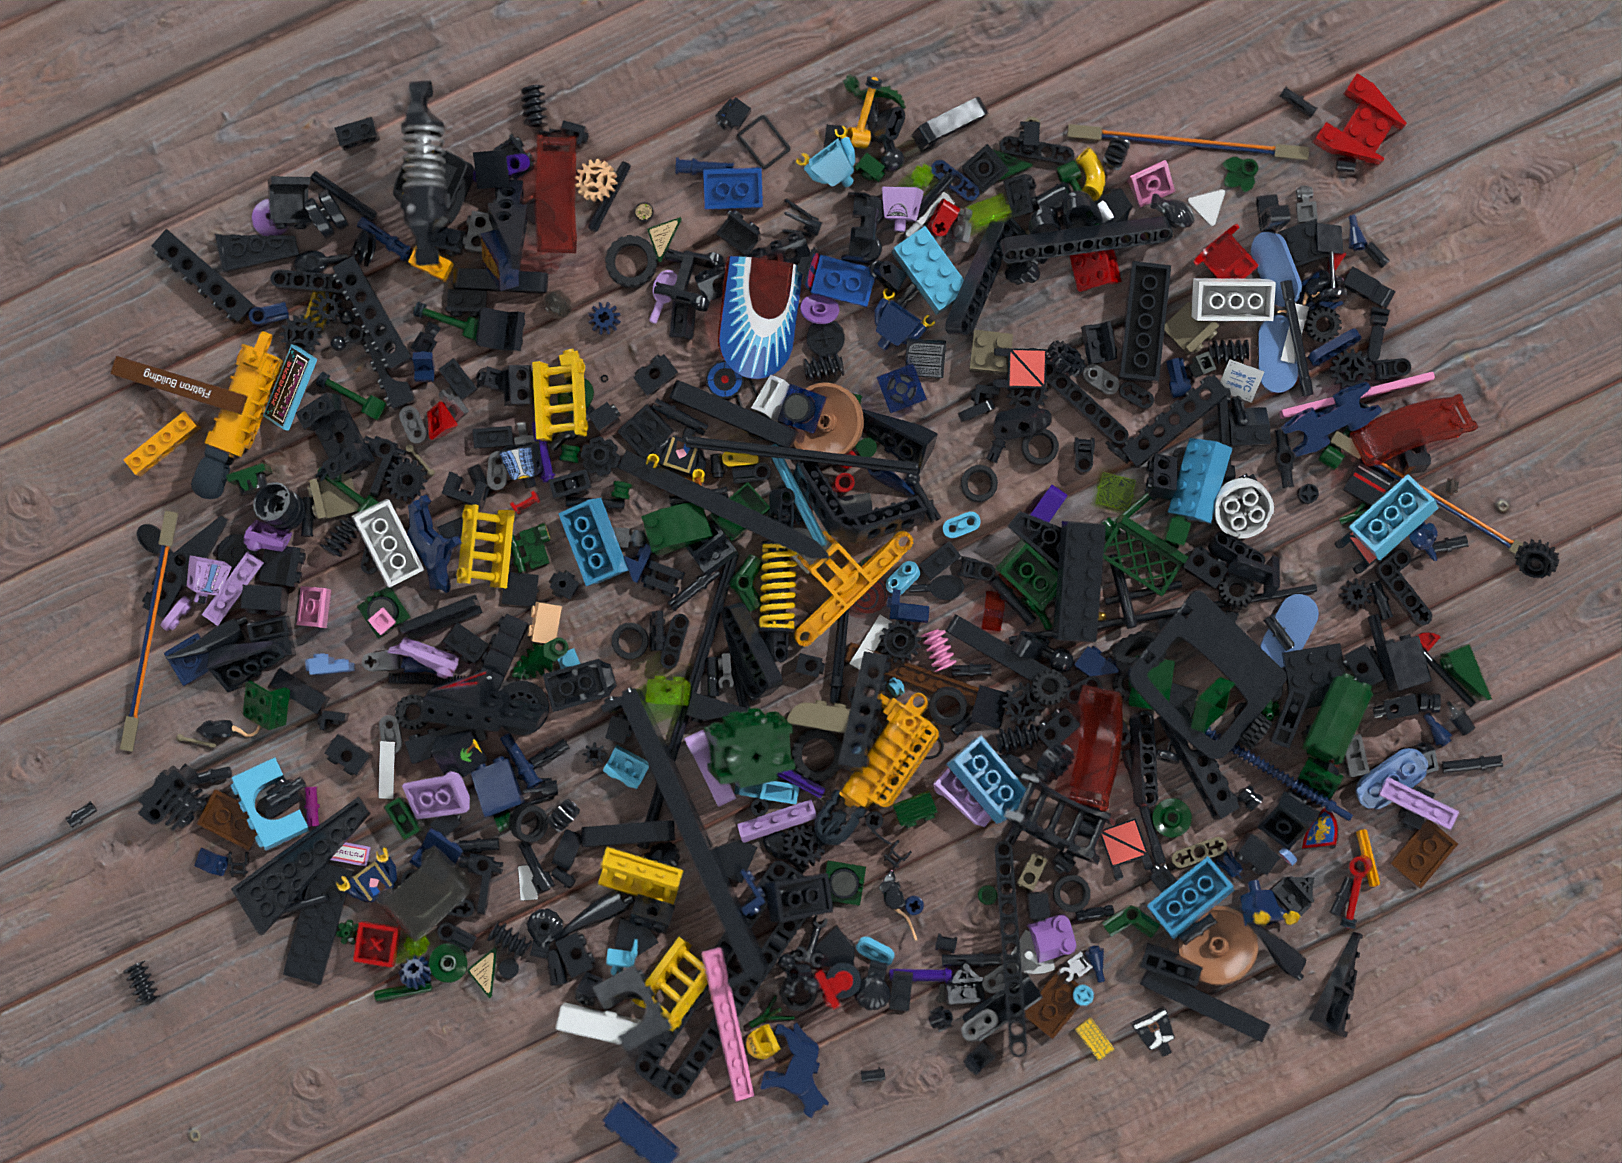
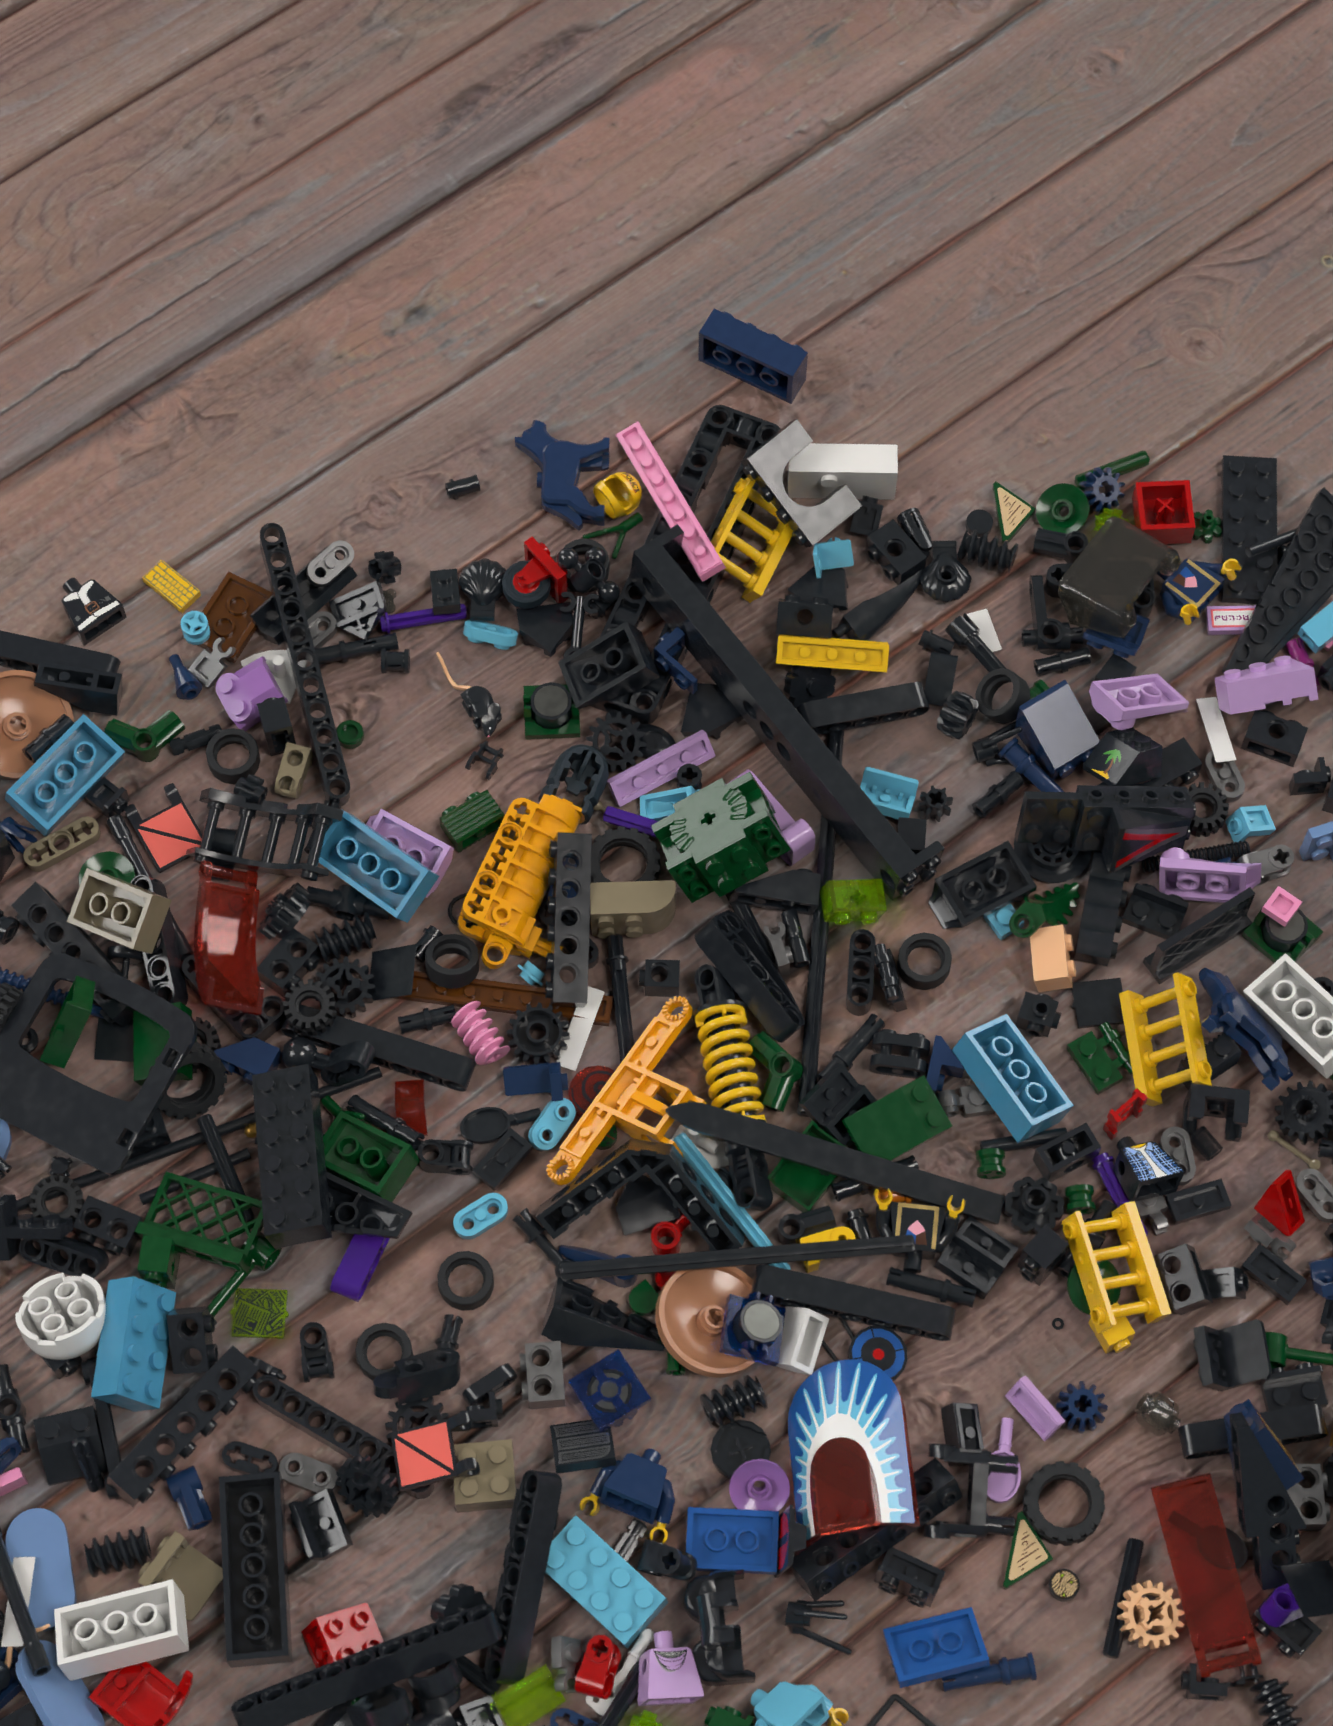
camera: 165 degrees right, 20 degrees down
(344, 791) = (1265, 684): none -> lavender wedge
(383, 694) = (1250, 822): none -> medium azure bracket
(403, 818) = (1175, 668): dark green brick -> none
(543, 531) = (1086, 1082): dark green tile -> none
(634, 323) = (1035, 1408): none -> lavender tile
(667, 373) = (987, 1322): black brick -> none
(873, 827) = (523, 785): black panel -> none
(911, 900) = (448, 707): dark blue bush -> none
(936, 409) = (550, 1374): none -> flat silver brick
(979, 1057) = (324, 531): black bracket -> none
(1167, 779) = (119, 911): none -> dark tan brick
(1201, 365) = (156, 1517): pearl dark grey piece -> none
(1241, 380) = (92, 1513): white sticker -> none

